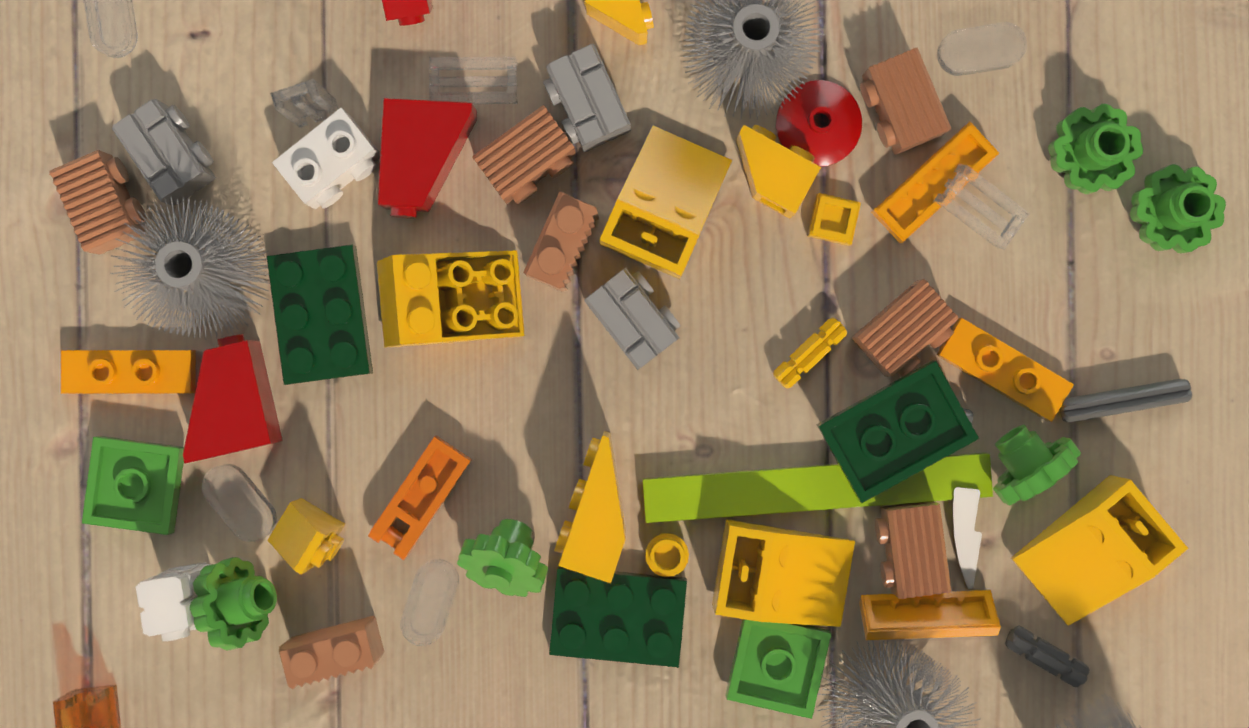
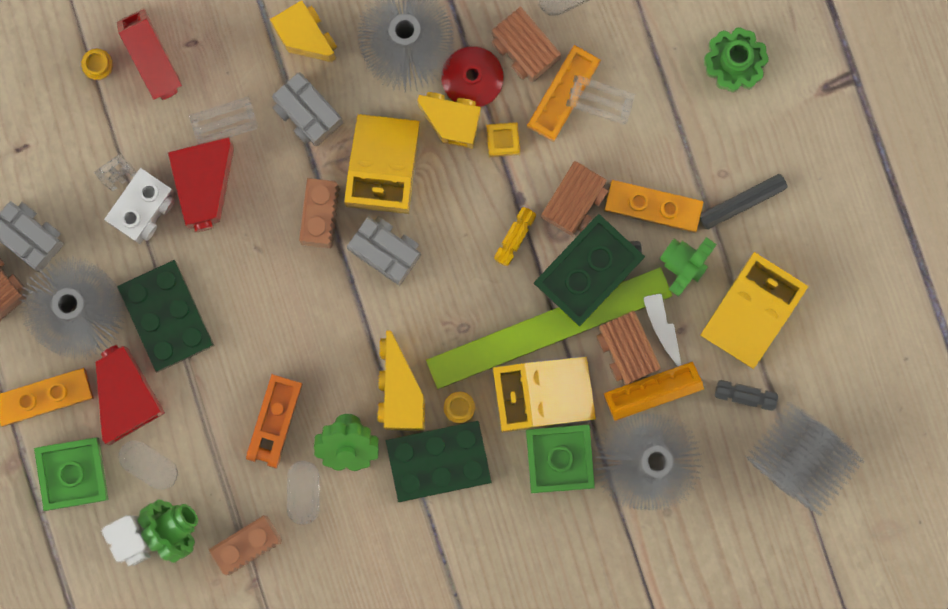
camera: 10 degrees left, 5 degrees down
(306, 536) = (204, 469): yellow slope -> none
(449, 297) = (253, 275): yellow slope -> none
(526, 156) = (276, 162): nougat brick -> none
(1095, 149) = (666, 36): bright green plant -> none

